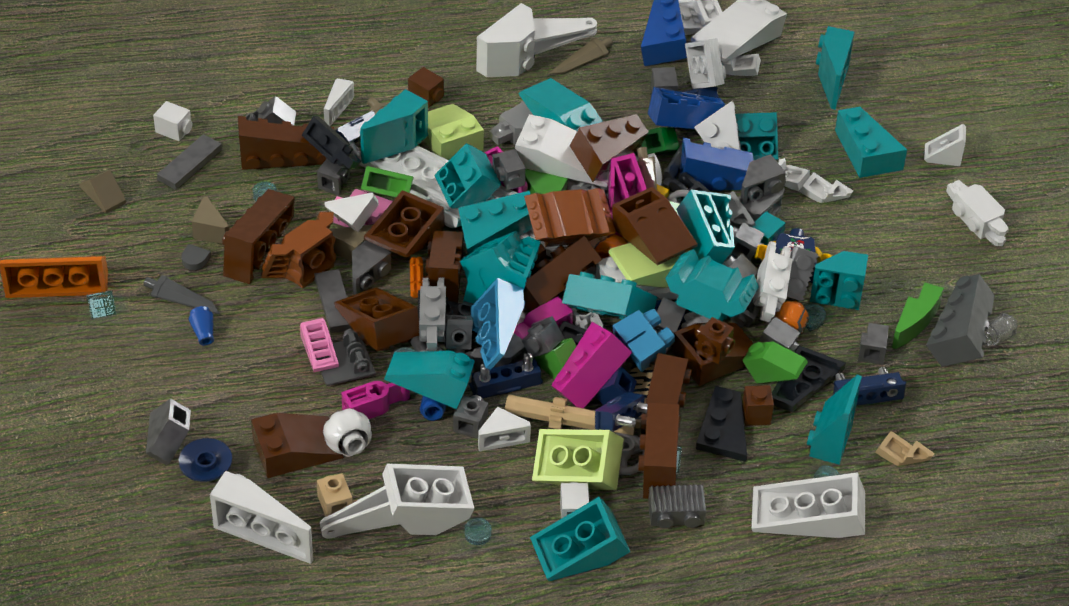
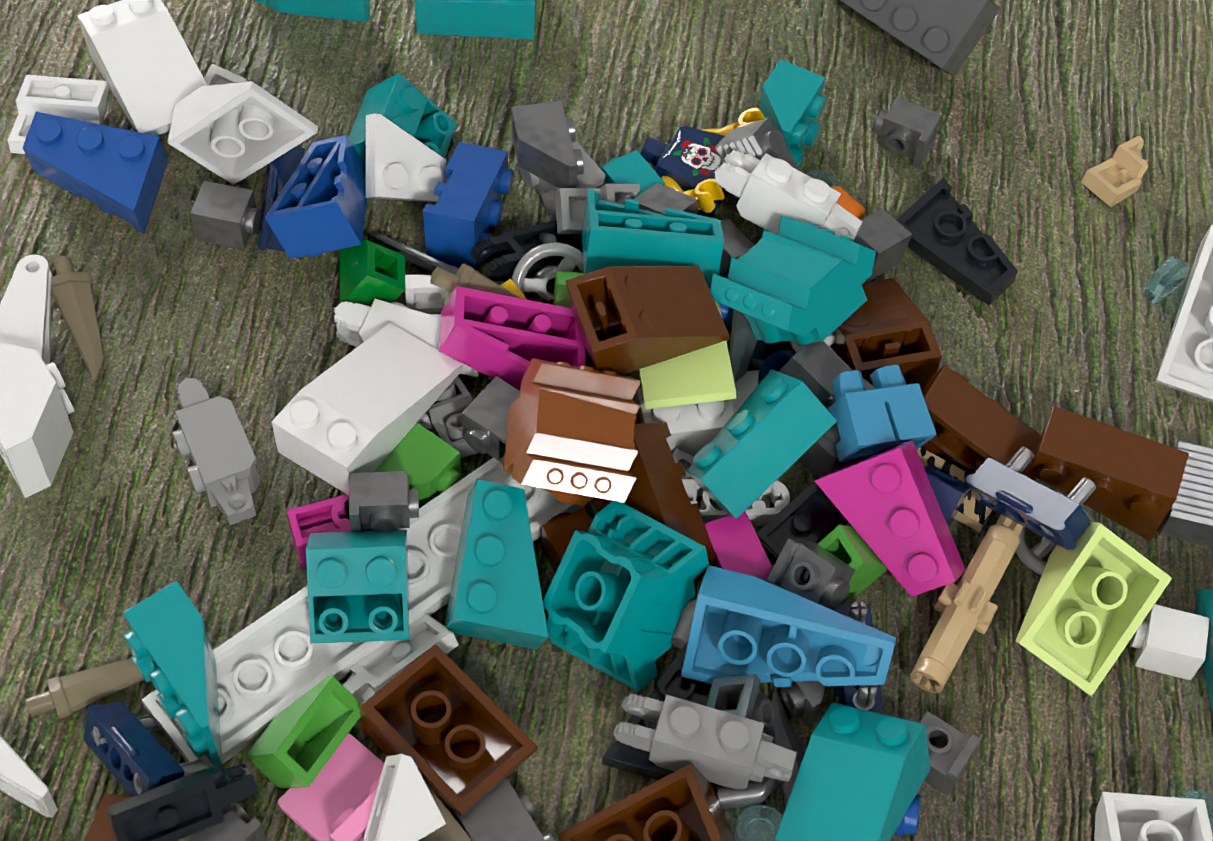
camera: 75 degrees left, 10 degrees up
(416, 276) = (564, 755): orange axle -> none
(426, 85) = (48, 592): reddish brown brick -> none
(444, 261) = (556, 689): reddish brown wedge -> none
(451, 129) = (206, 563): yellowish green slope -> none
(503, 430) = (984, 710): white slope -> none
(559, 103) = (242, 377): teal slope -> none
(605, 140) = (398, 325): wedge -> none
(715, 340) = (916, 312): reddish brown brick -> none
(724, 426) = (1021, 376): black wing -> none
(757, 405) = (1008, 316): reddish brown brick -> none
(773, 362) = (939, 261): bright green slope -> none
(794, 175) = (494, 121): white slope -> none
(823, 191) = (552, 86): white slope -> none
(834, 423) = (1091, 215): teal slope -> none
(876, 388) = (997, 170): dark blue piece -> none
(917, 314) = (862, 60): bright green slope -> none

